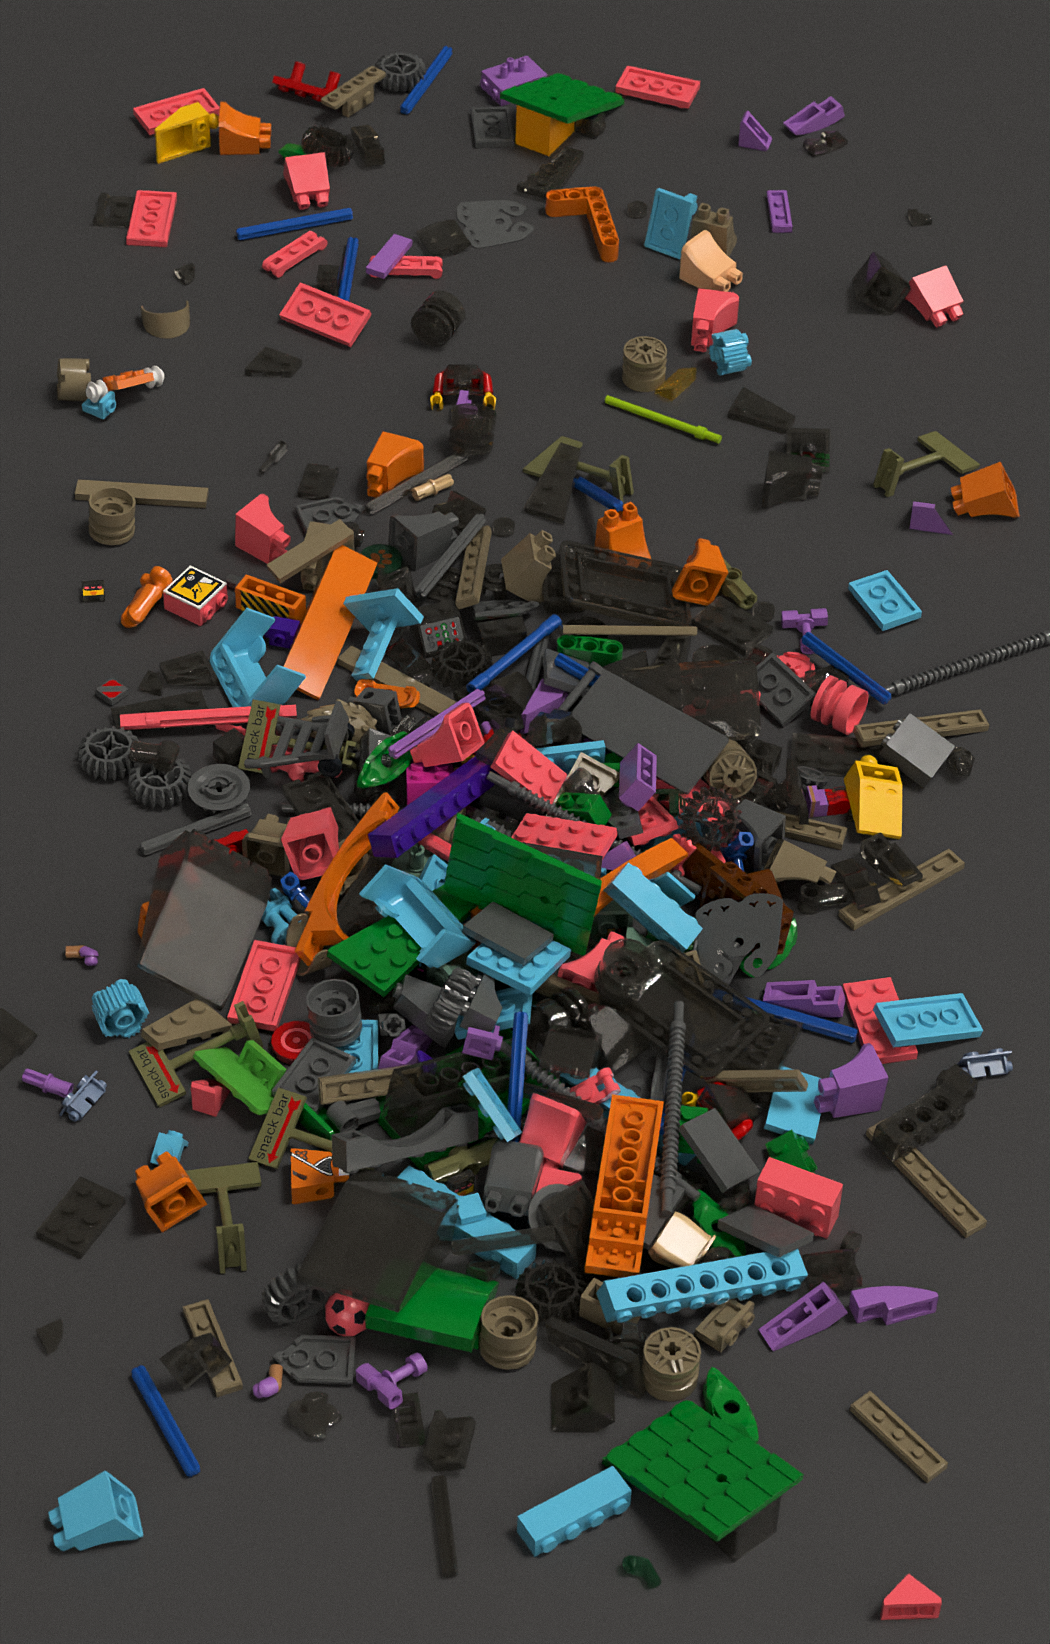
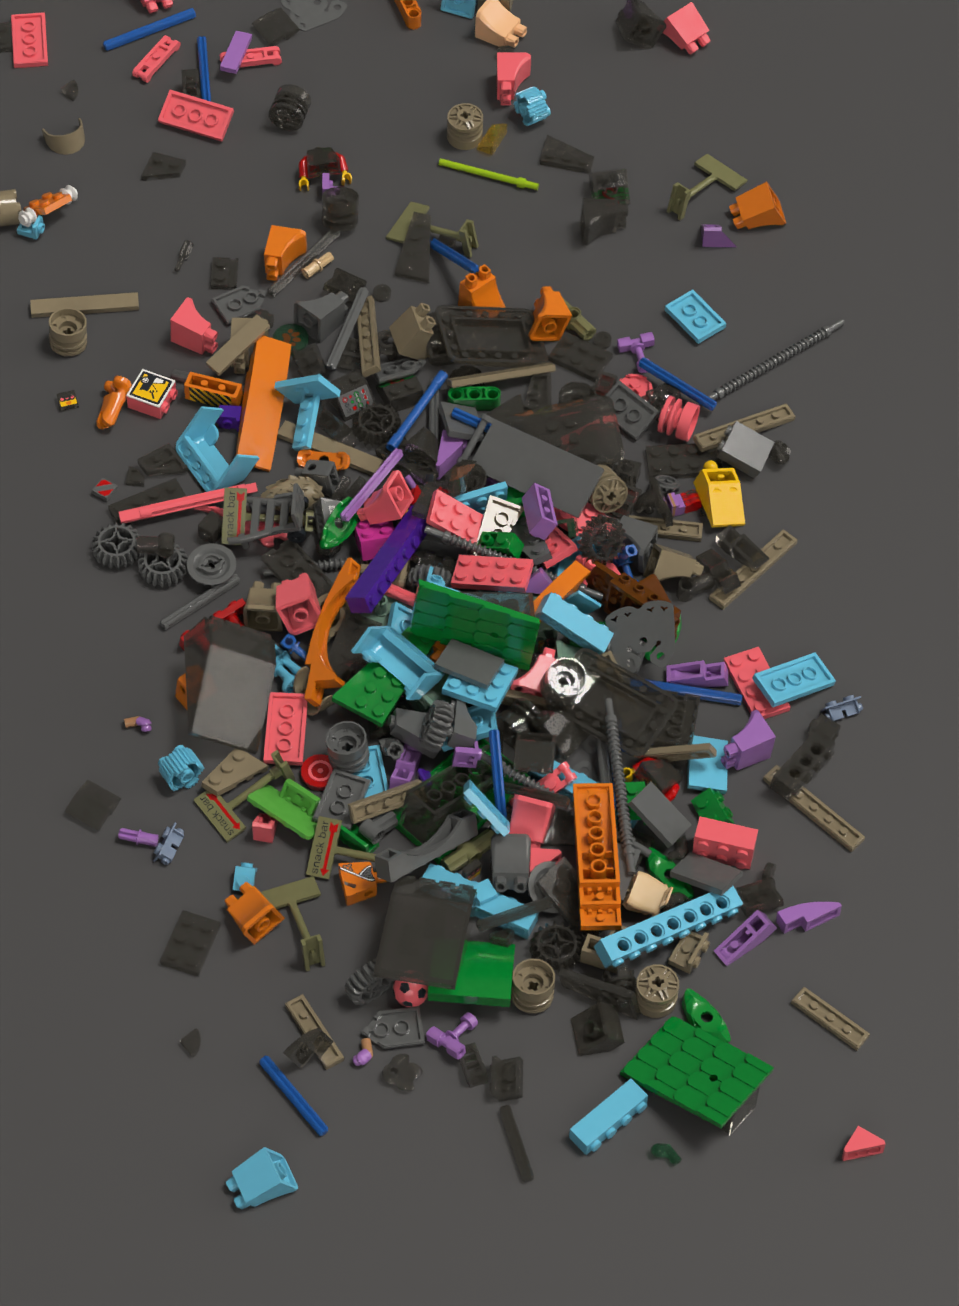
camera: 10 degrees left, 10 degrees up
(581, 782) = (496, 523): clear smoke pin -> none

